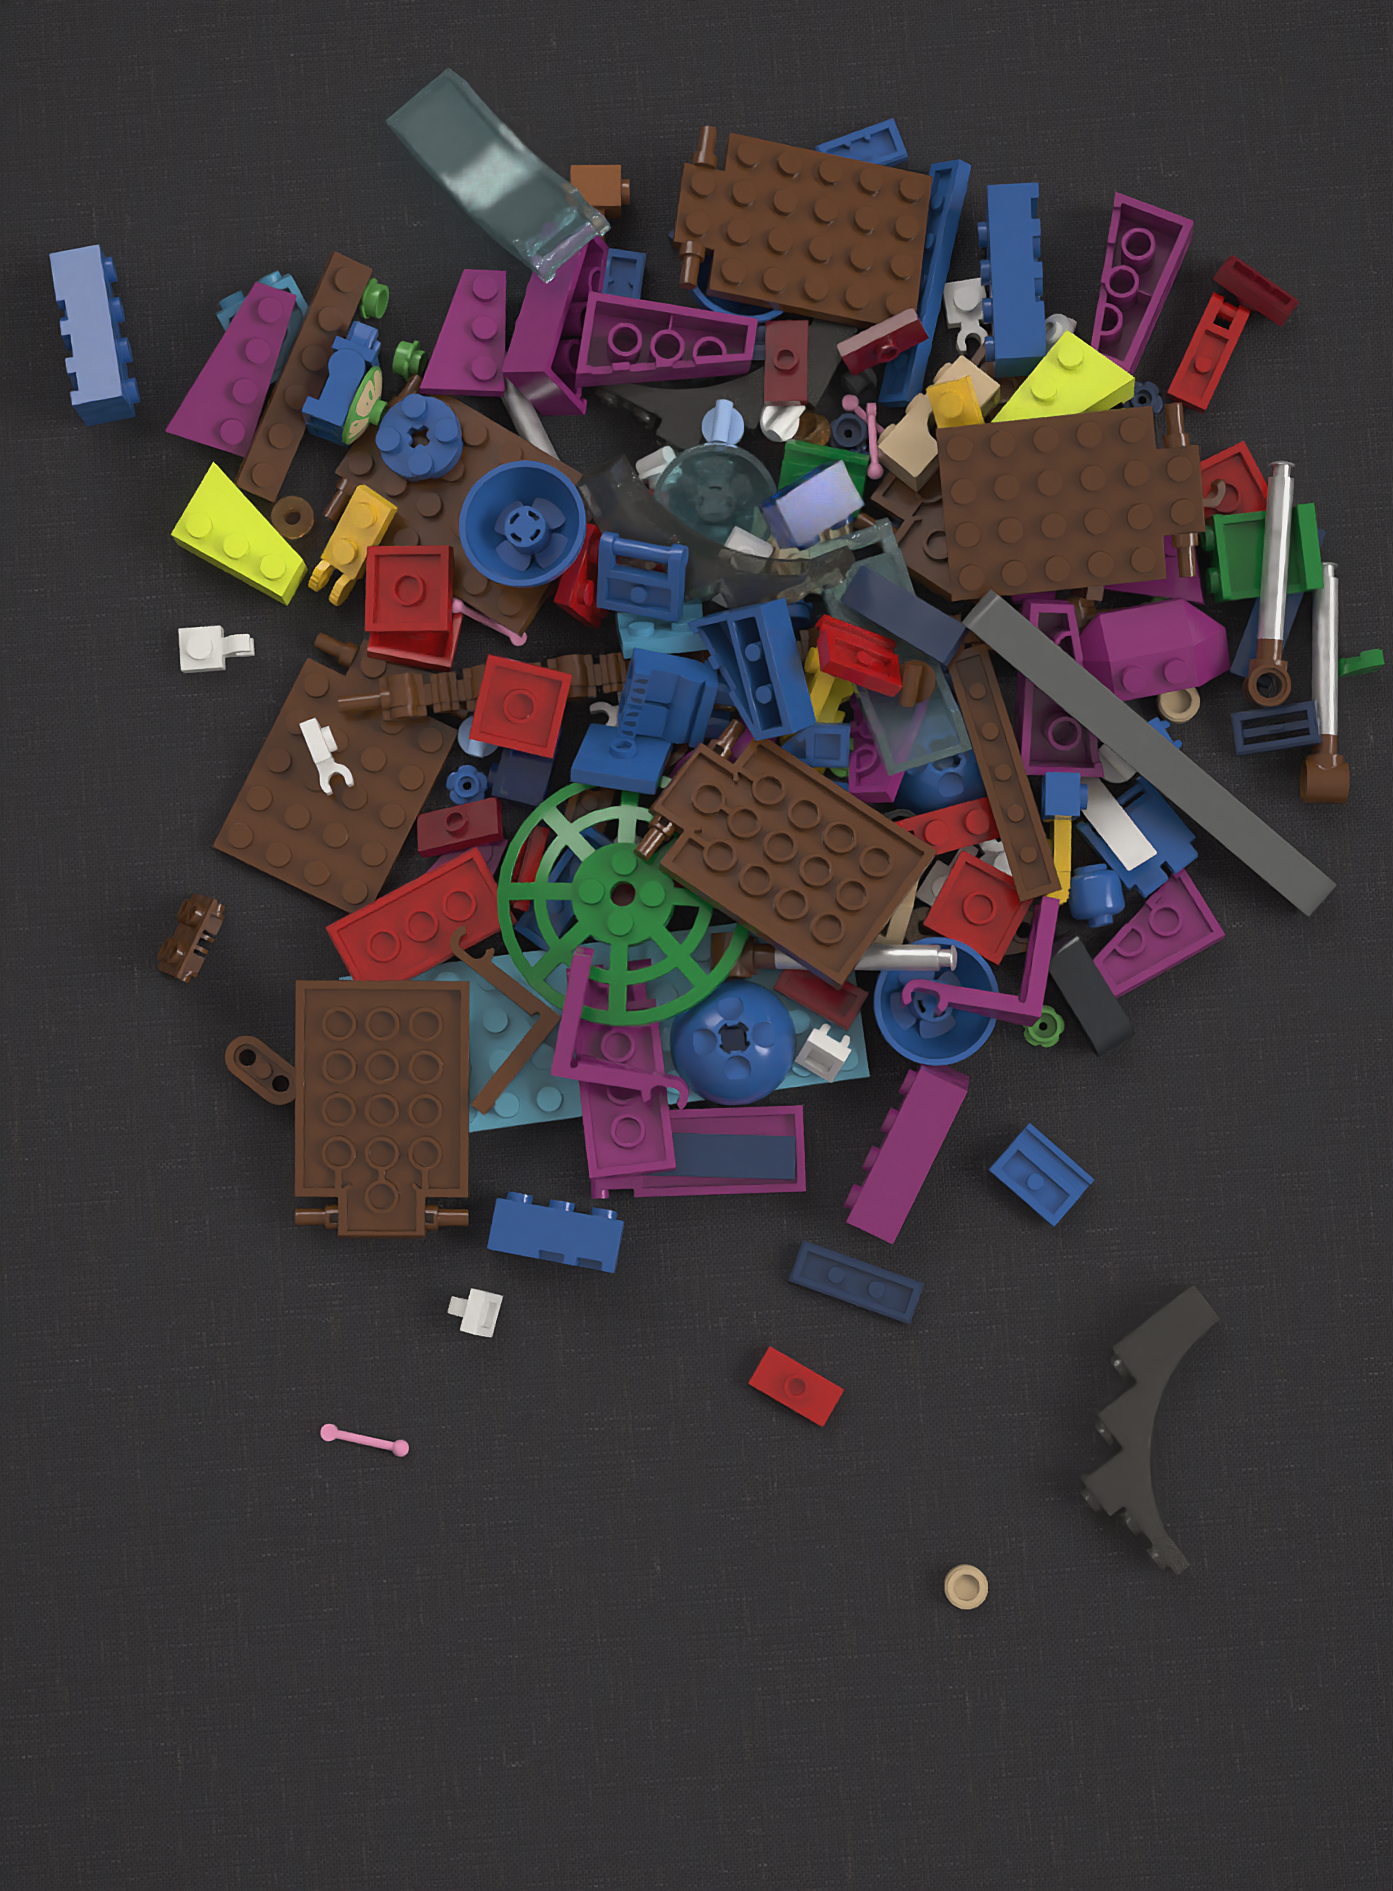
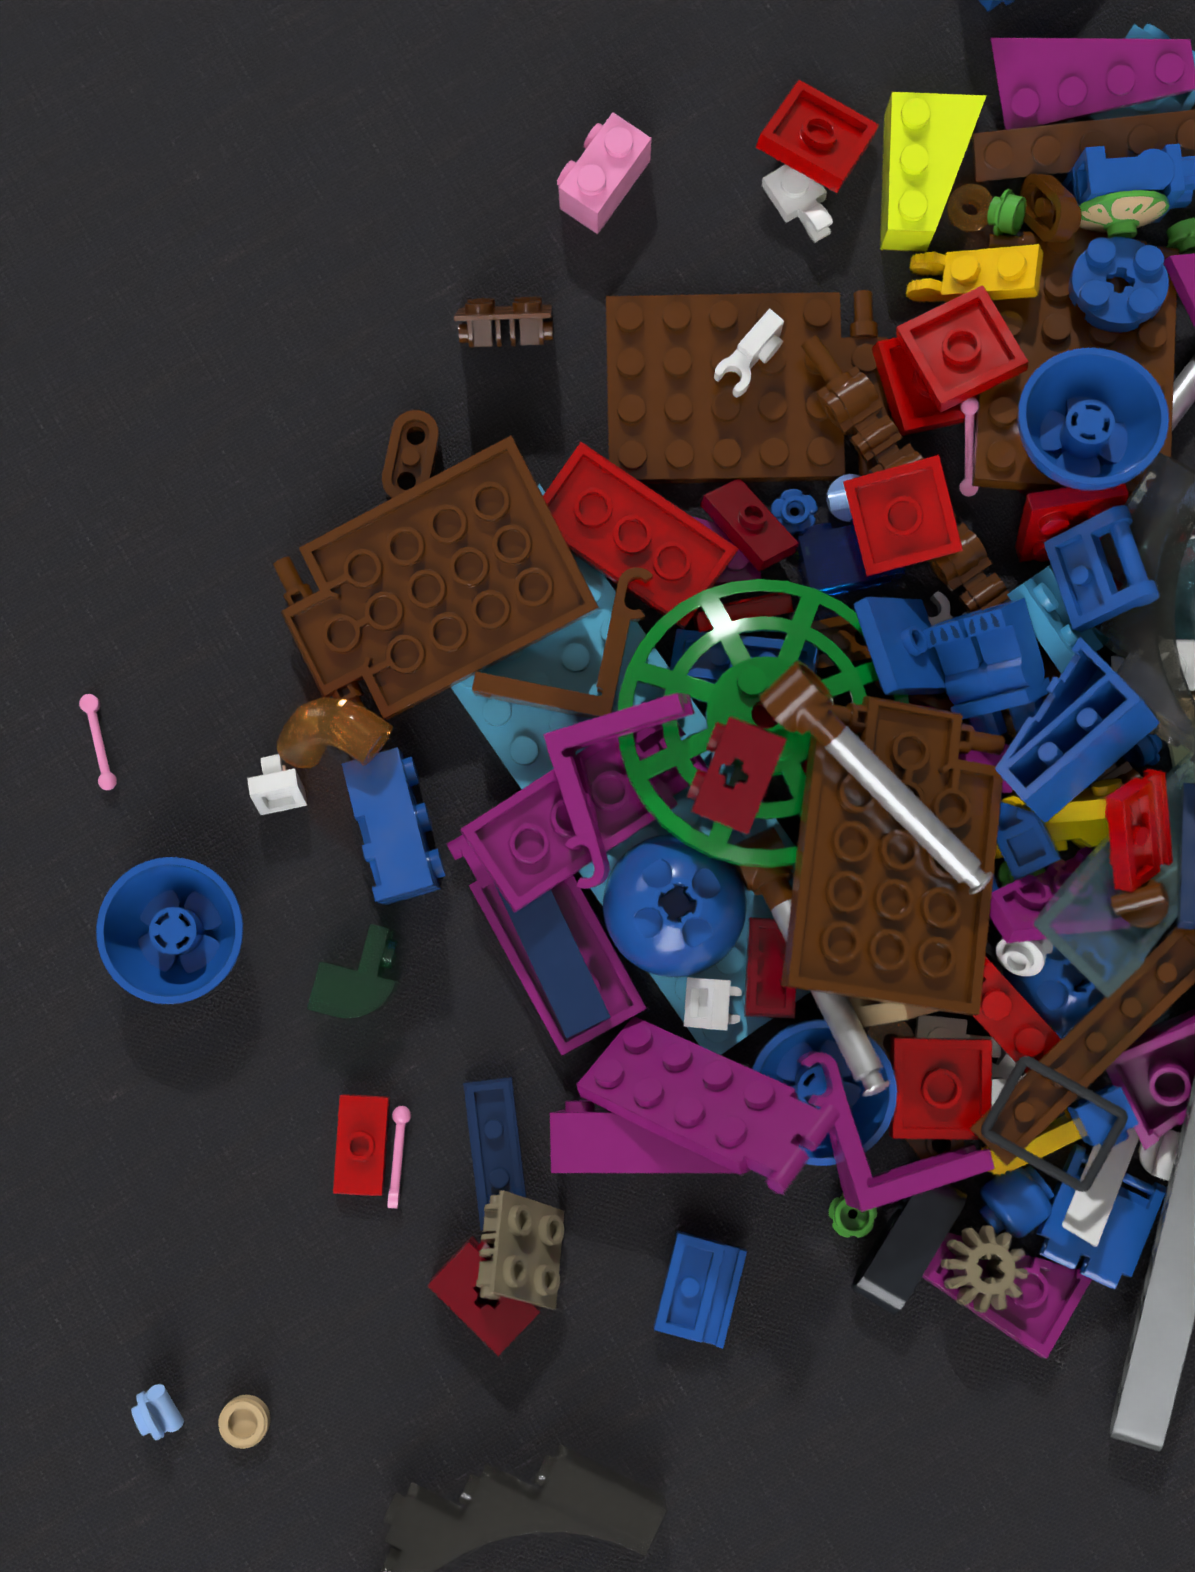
camera: 70 degrees right, 0 degrees up
(111, 795) = (604, 172): none -> bright pink brick
(171, 610) = (817, 136): none -> red plate
(314, 492) = (1007, 213): none -> bright green plate
(329, 459) = (1050, 208): none -> reddish brown plate
(450, 1241) = (335, 724): none -> clear orange cylinder
(572, 1476) = (143, 926): none -> blue piece
(632, 862) = (803, 704): none -> flat silver piece
(672, 1331) = (358, 992): none -> clear green brick
(683, 950) = (736, 804): none -> dark red brick
(790, 1344) = (401, 1116): none -> bright pink hinge
(897, 1095) = (706, 1103): none -> magenta hinge
(911, 792) = (1023, 957): none -> white plate
(923, 1650) = (156, 1412): none -> light blue plate
(942, 1293) = (525, 1250): none -> dark tan hinge
(986, 1348) = (490, 1319): none -> dark red brick
(1025, 889) = (1034, 1160): none -> black piece
(1127, 960) = (1000, 1265): none -> dark tan gear

